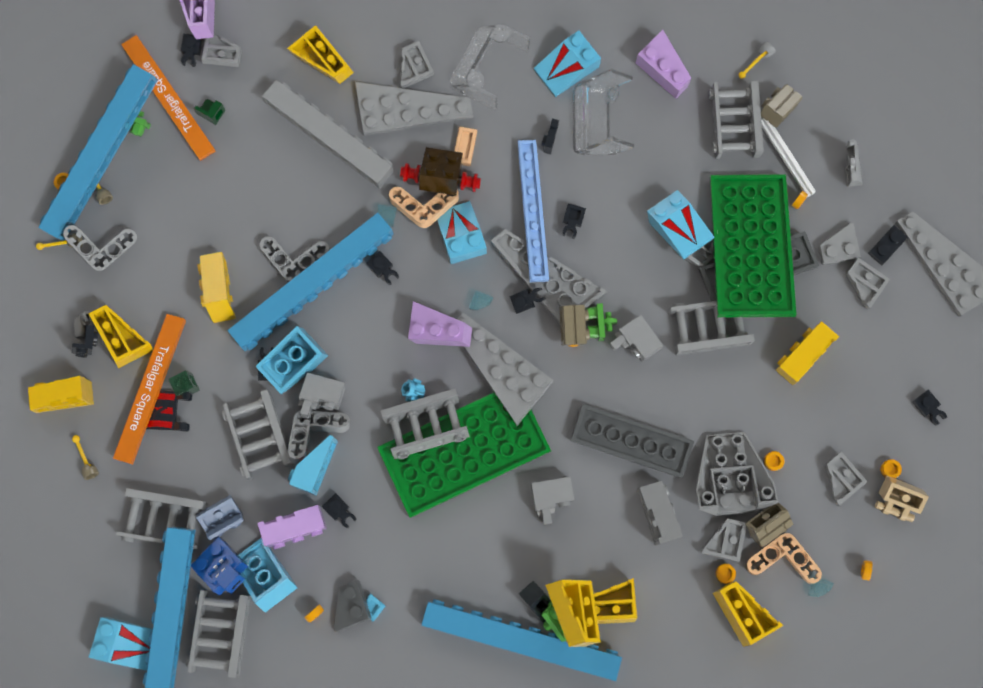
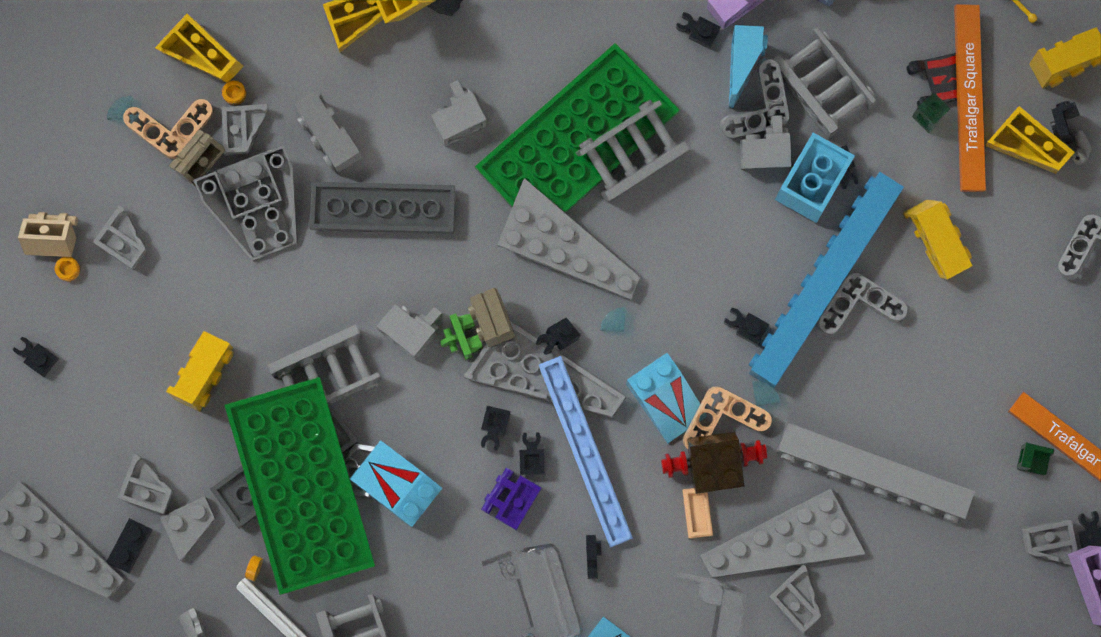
camera: 165 degrees right, 0 degrees up
(319, 53) = (919, 572): yellow wedge -> none
(413, 390) = (659, 186): medium azure gear -> none
(436, 328) = (654, 265): lavender wedge -> none
(593, 189) = (516, 504): none -> dark purple plate
(593, 251) = (494, 423): none -> black plate
(774, 461) = (208, 236): light orange tile -> none
(866, 570) = (72, 142): light orange tile -> none

